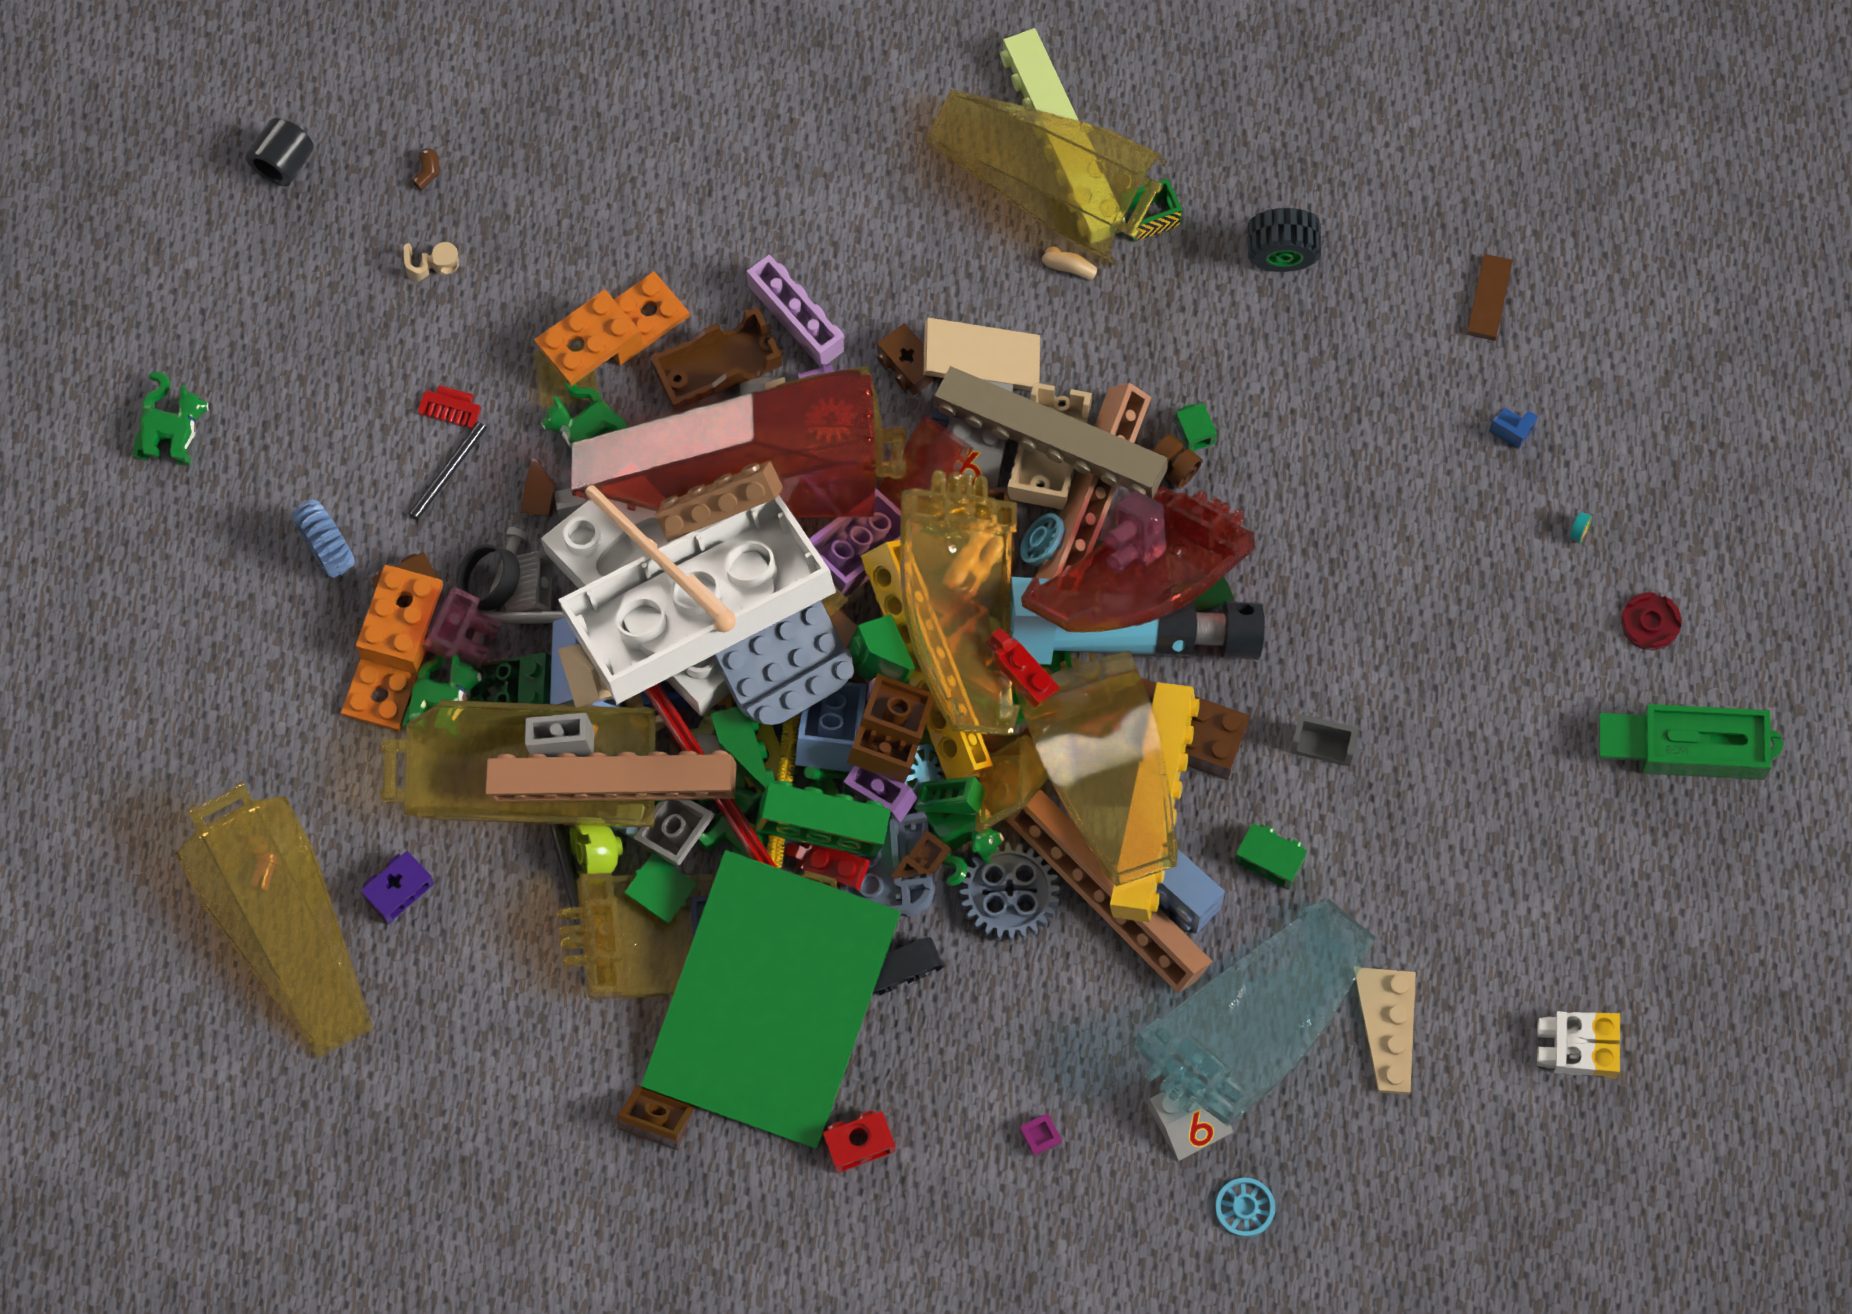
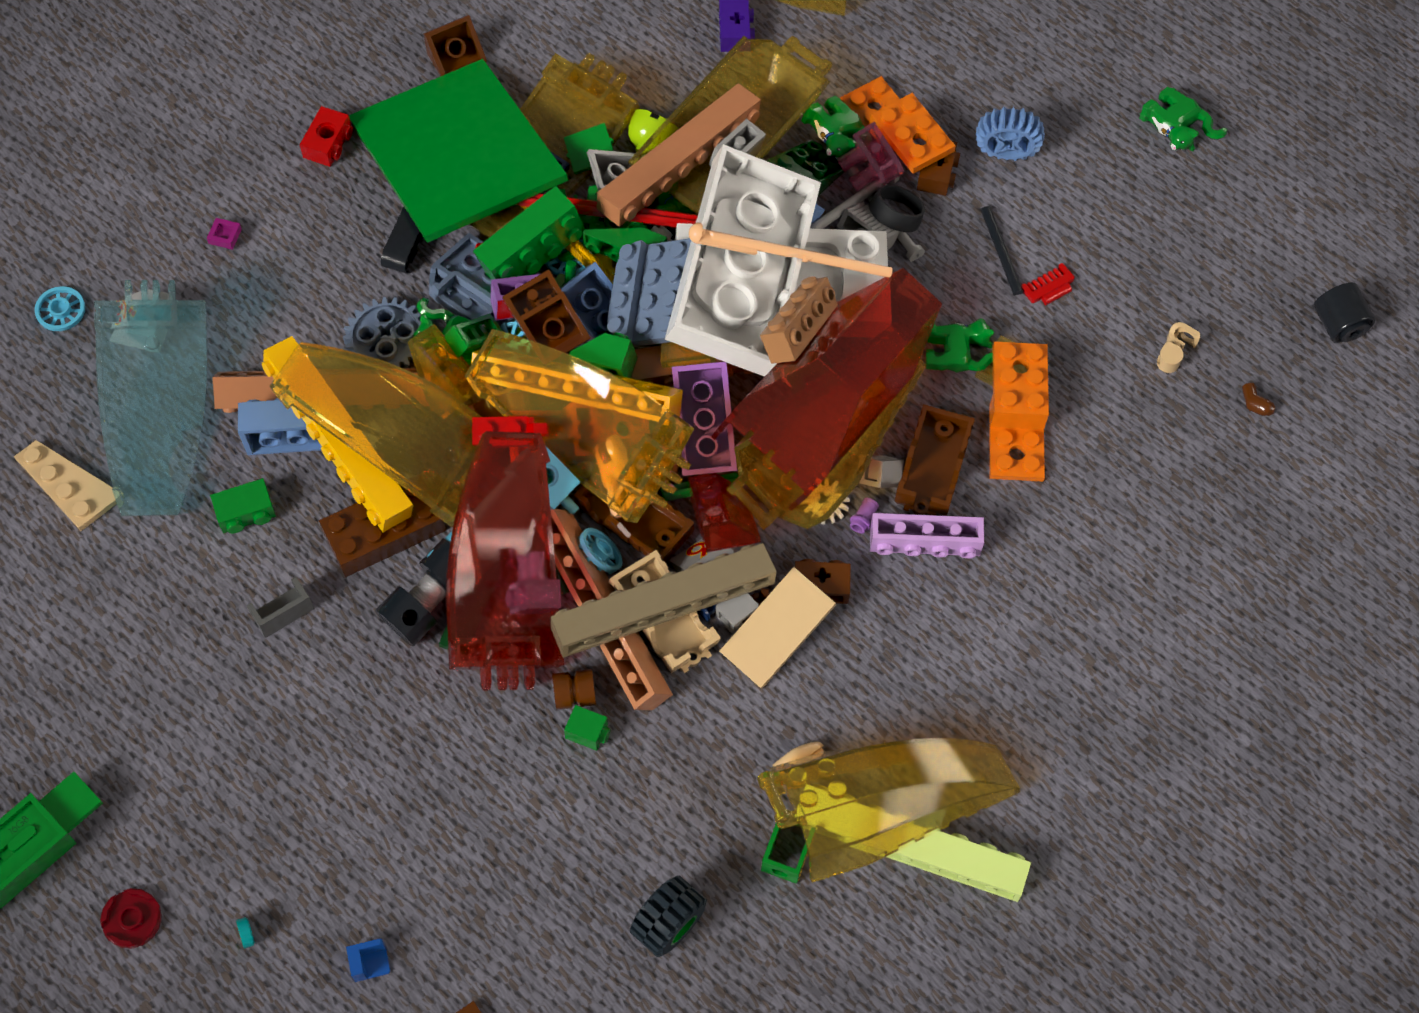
camera: 130 degrees right, 5 degrees down
(538, 491) = (938, 285): reddish brown slope -> none
(923, 858) = (454, 295): reddish brown slope -> none

